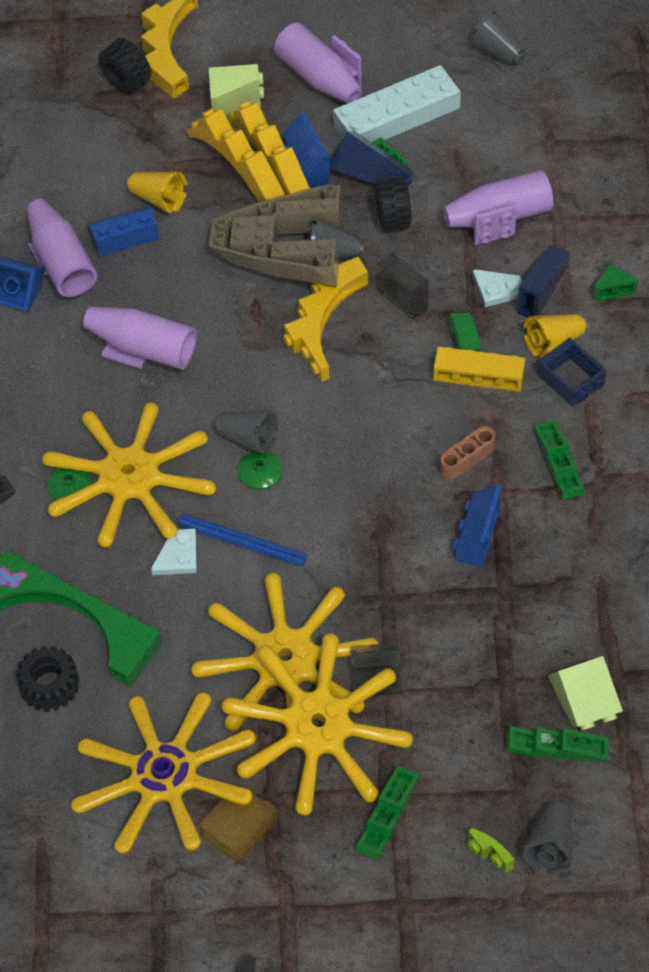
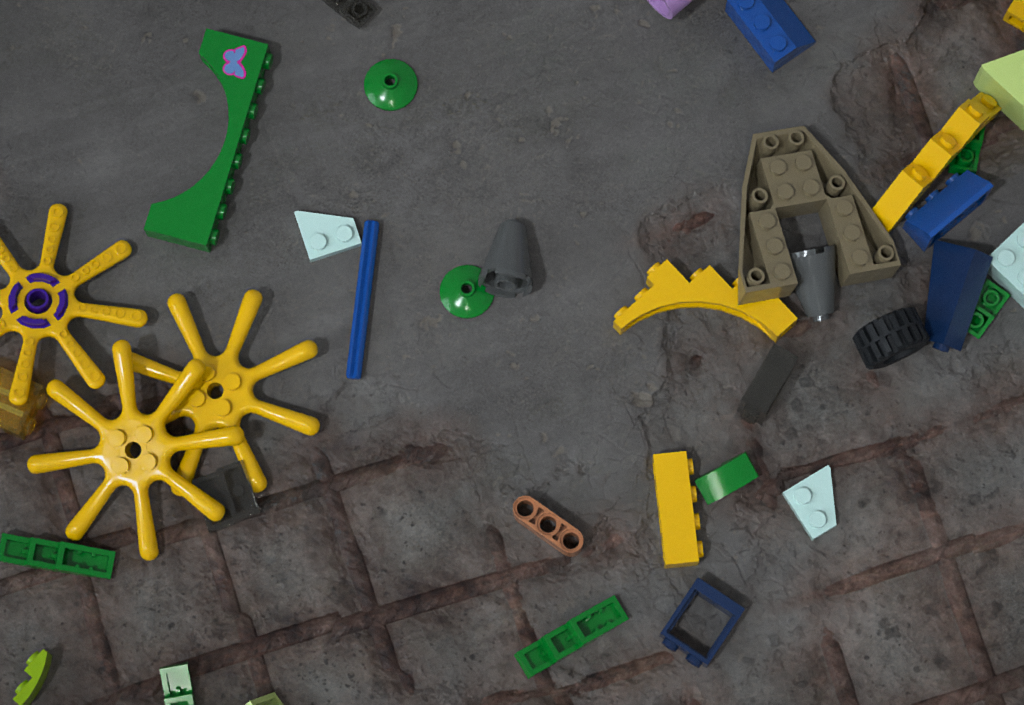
camera: 75 degrees right, 20 degrees up
(44, 662) = (111, 128): black tyre -> none
(128, 474) = (409, 164): yellow animal -> none
(141, 336) = (597, 99): lavender piece -> none
(159, 189) = (836, 48): yellow cone -> none
(236, 149) = (911, 124): yellow arch -> none
(478, 526) = (442, 563): blue slope -> none
(497, 206) = (929, 466): lavender piece -> none
(542, 281) = (832, 555): dark blue slope -> none
(550, 331) = (753, 588): yellow cone -> none
(614, 284) = (855, 645): green slope -> none

